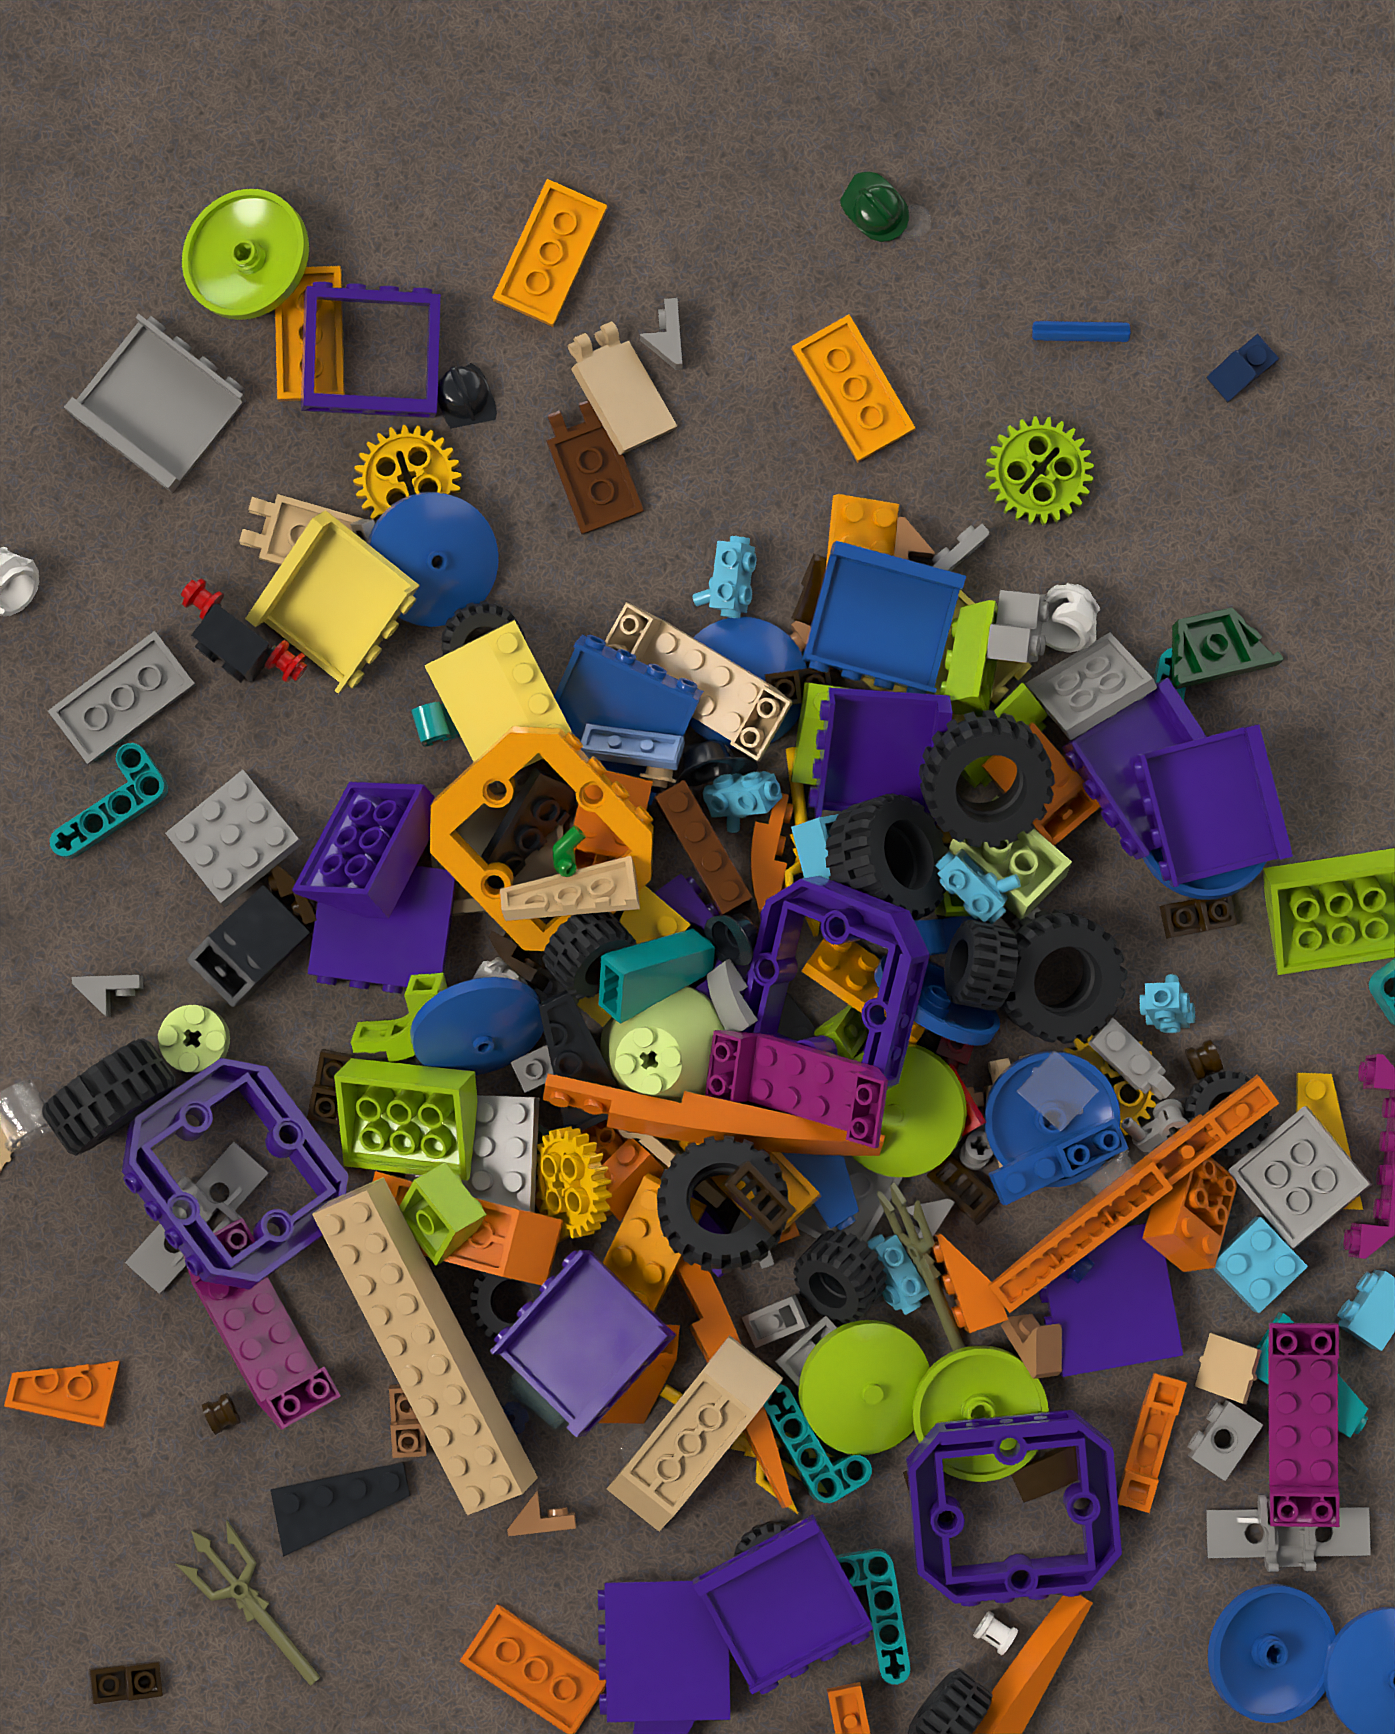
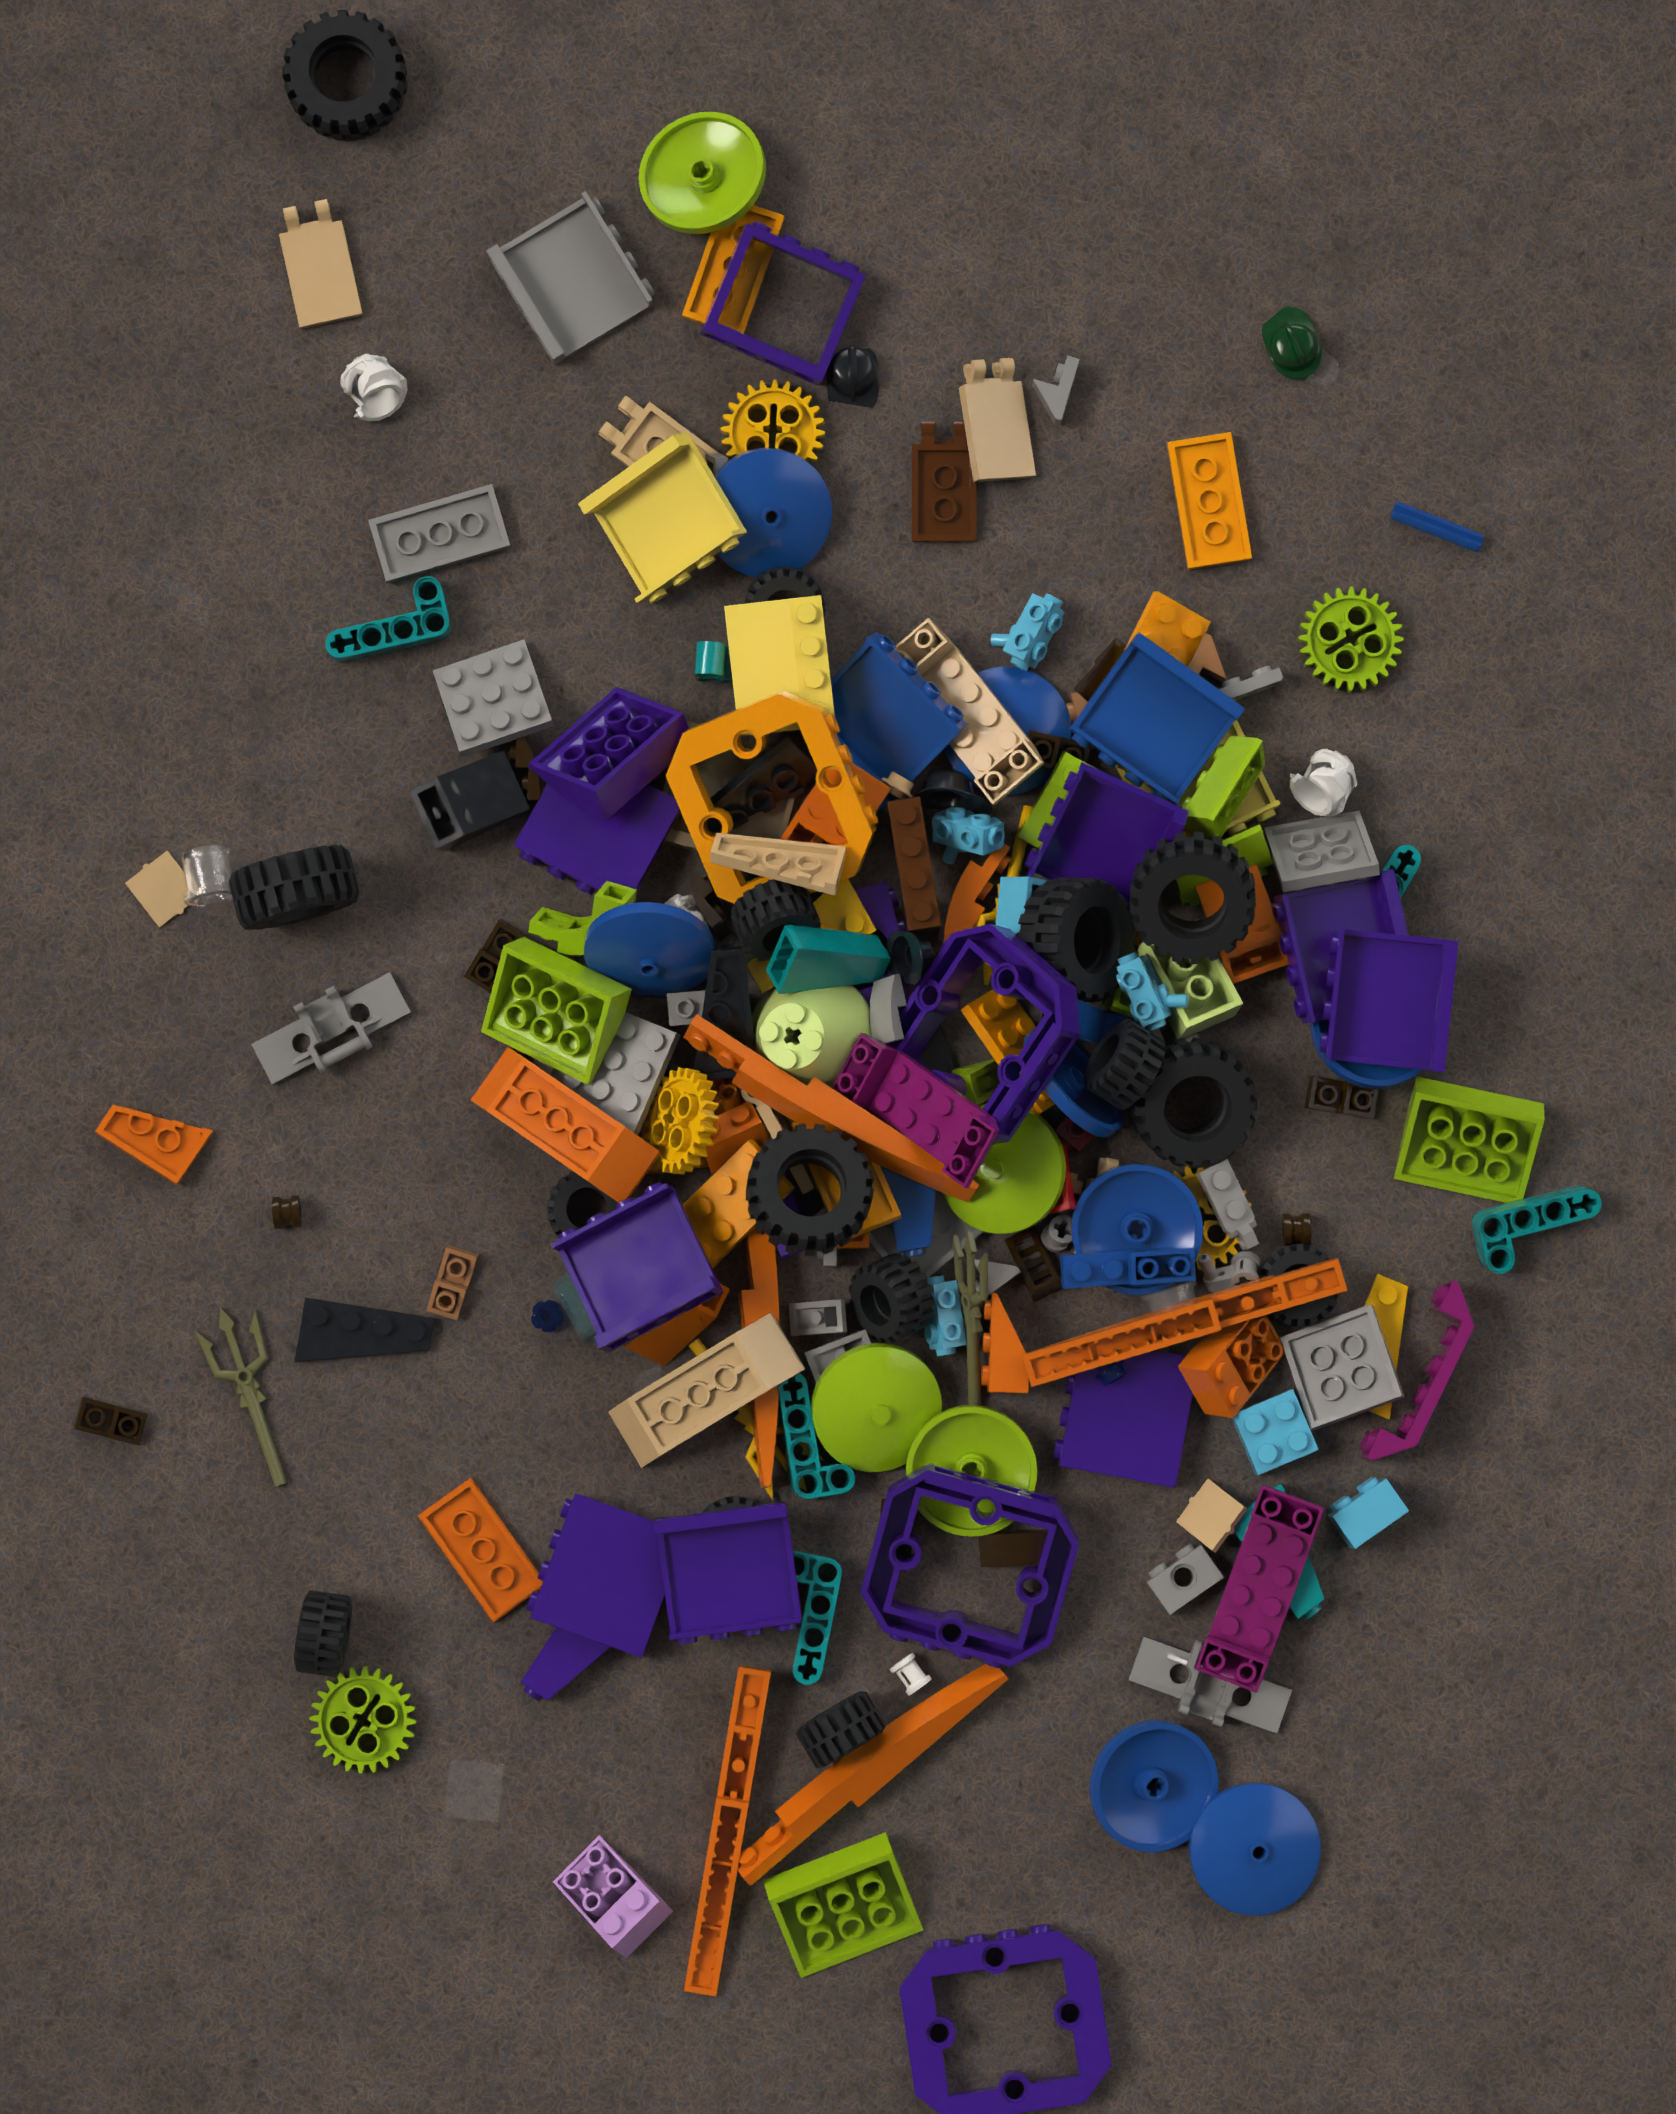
camera: 20 degrees right, 0 degrees up
(98, 988) = (320, 787): light grey slope -> none
(160, 1192) = (323, 1039): dark purple panel -> none
(196, 1019) = (406, 873): yellowish green brick -> none
(233, 642) = (559, 521): black brick -> none
(265, 1341) = (348, 1144): magenta slope -> none
(425, 1346) = (494, 1219): tan brick -> none
(441, 1212) = (552, 1102): lime slope -> none
(531, 1520) = (530, 1414): medium nougat slope -> none
(550, 253) = (979, 274): light orange plate -> none
(564, 853) = (786, 821): green arm -> none
(632, 746) = (884, 750): medium blue tile -> none
(749, 1206) = (854, 1188): dark brown slope -> none
(1018, 627) = (1275, 773): light grey brick -> none
(1036, 1345) = (1045, 1427): medium nougat slope -> none
(1057, 1090) = (1151, 1204): clear piece -> none
(1150, 1442) = (1116, 1555): orange slope -> none
(1167, 1005) = (1280, 1167): medium azure brick -> none
(1216, 648) = (1450, 860): dark green wing -> none
(1242, 367) = (1572, 615): dark blue slope -> none

